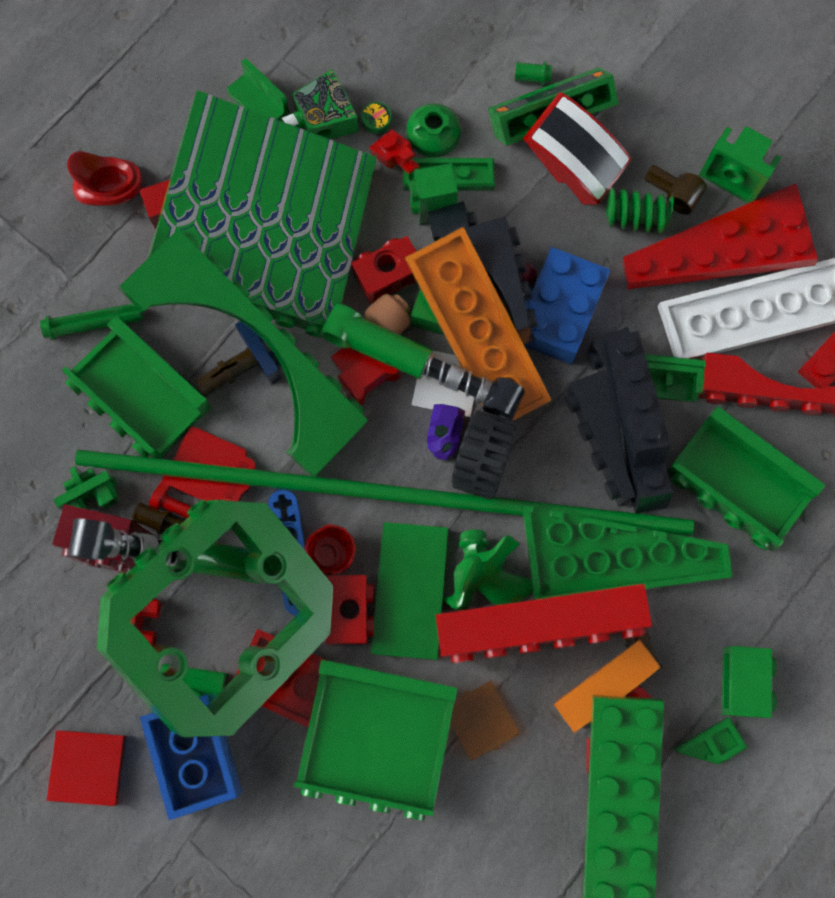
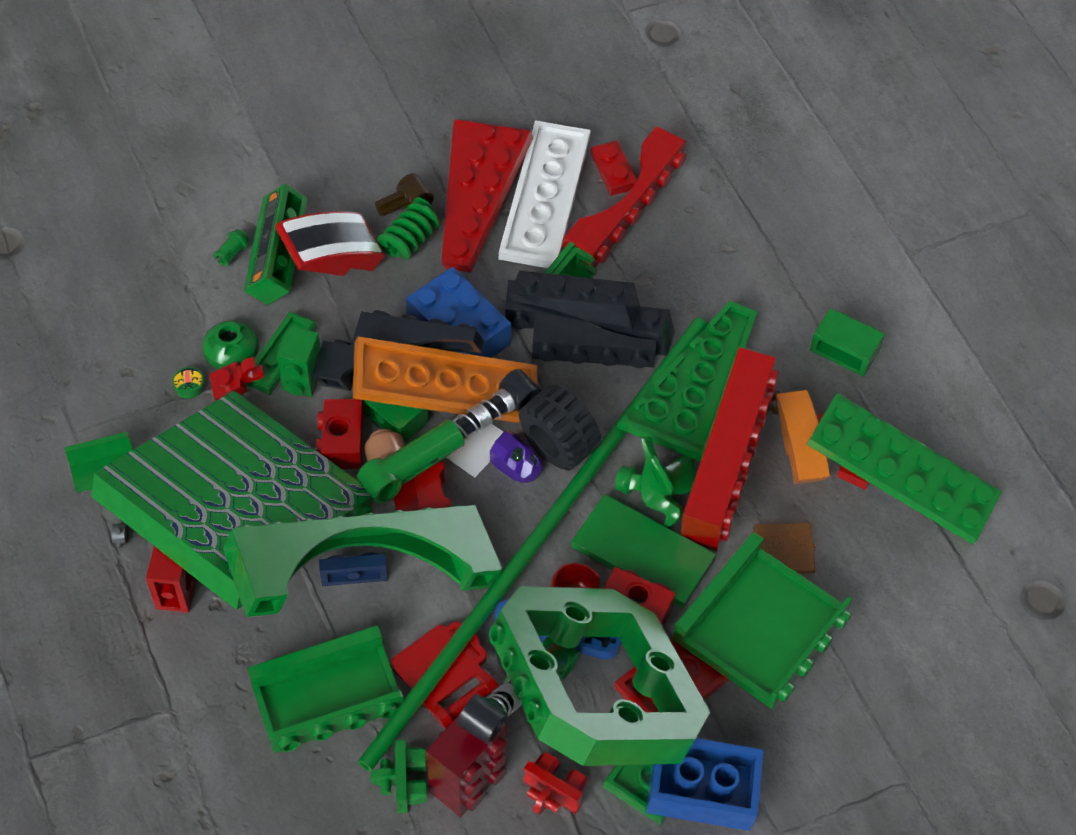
camera: 65 degrees left, 20 degrees down
(88, 320) = (215, 739): green axle -> none
(103, 179) = (97, 627): red piece -> none
(226, 372) = (355, 589): dark brown pin -> none
(323, 108) = (153, 411): torso -> none
(714, 743) = (885, 389): green tile -> none
(740, 166) = (422, 143): green panel -> none
(744, 479) = (681, 265): green panel -> none

